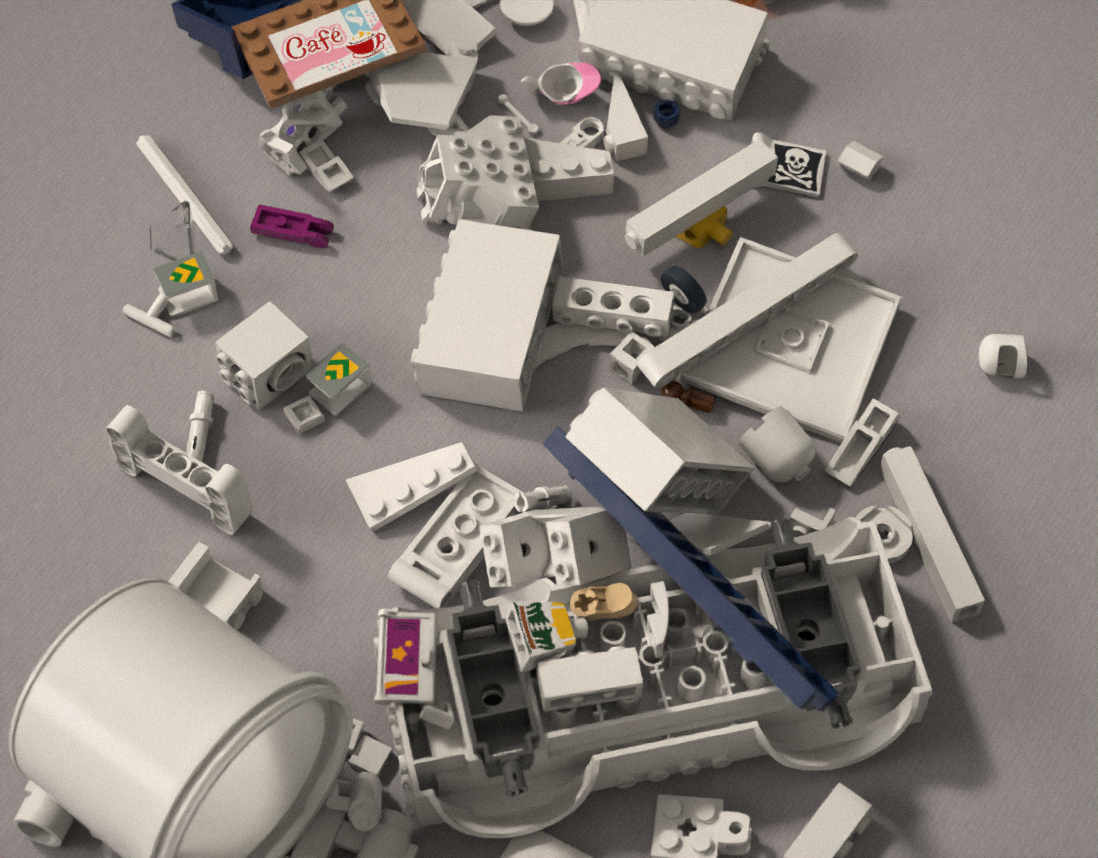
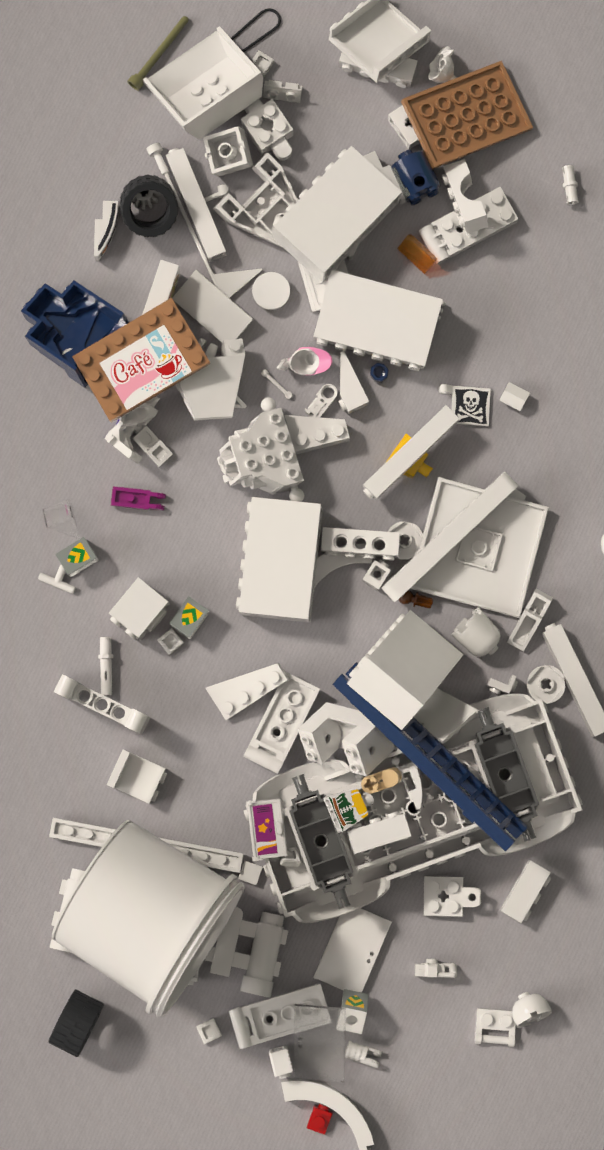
camera: 10 degrees left, 25 degrees up
(183, 192) = (60, 481): white axle -> none
(364, 800) = (252, 907): white piece -> none
(542, 498) = (327, 693): white pin -> none
(686, 289) = (405, 527): black bush -> none

